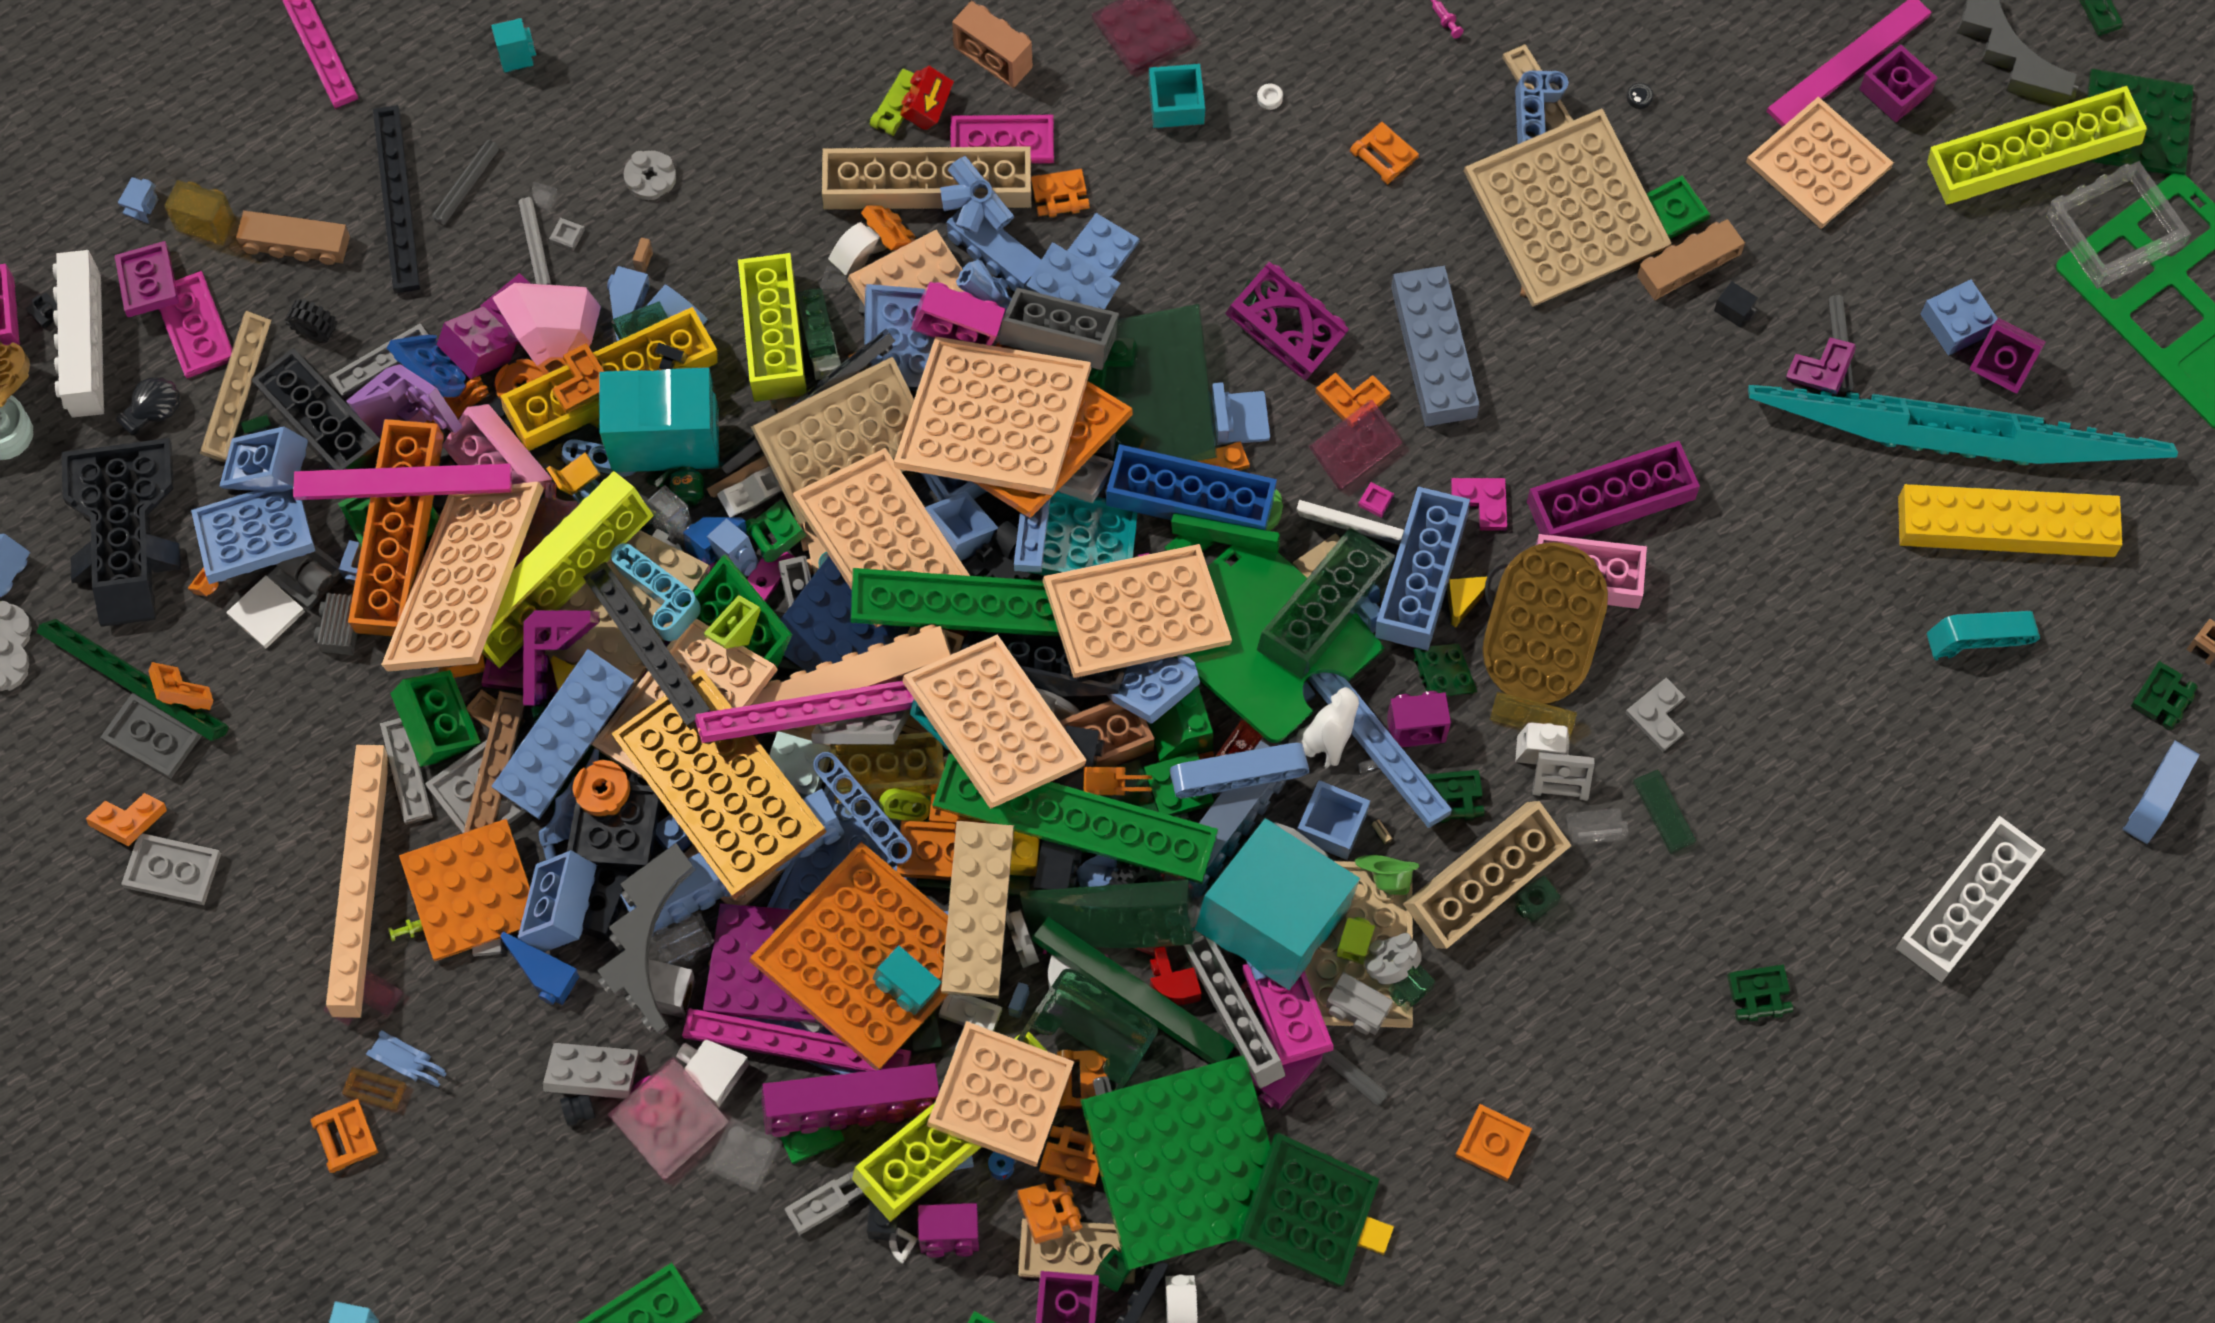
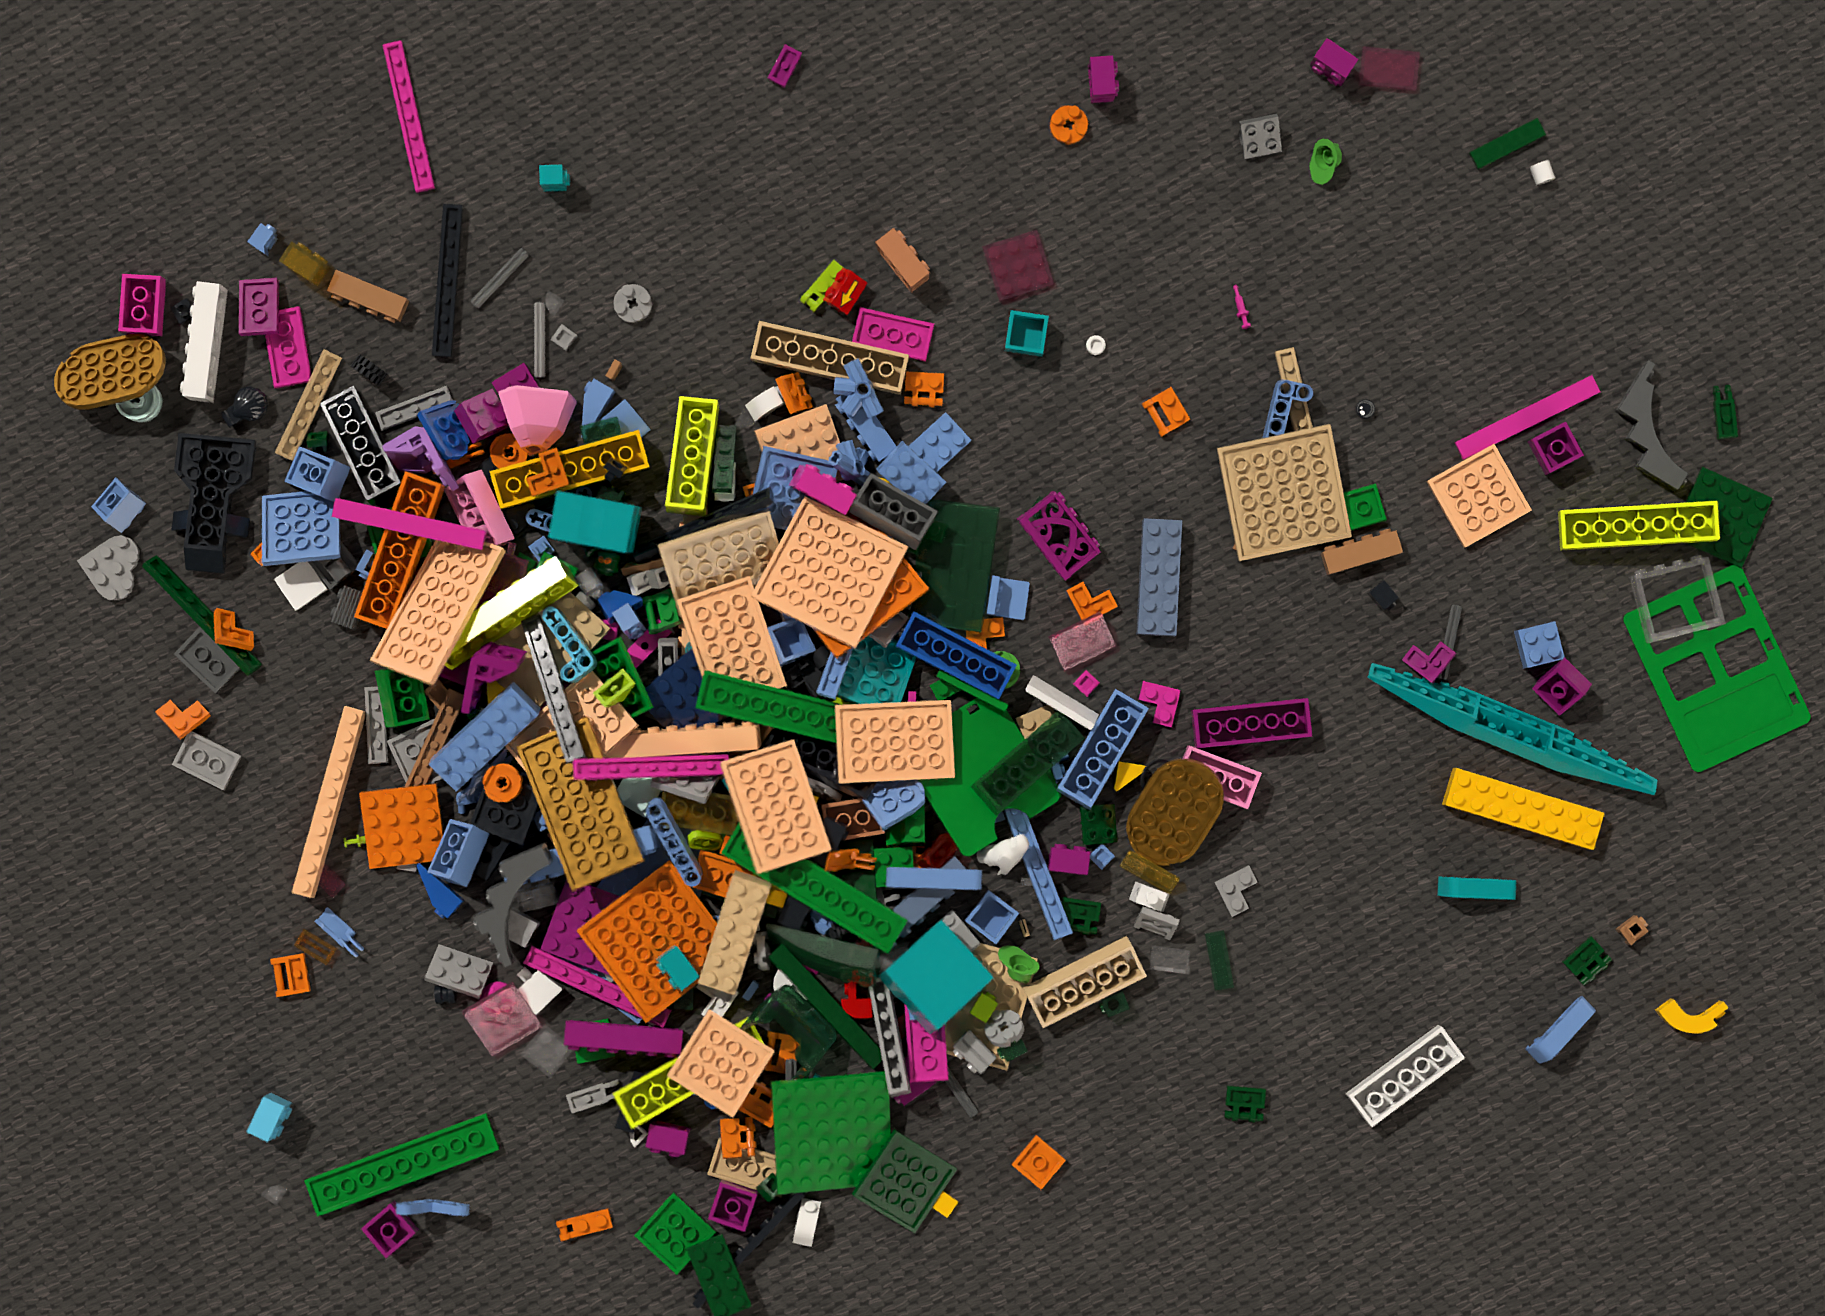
camera: 15 degrees right, 20 degrees up
(575, 475) = (530, 537): light orange bracket -> none
(1462, 712) = (1101, 856): none -> medium blue tile

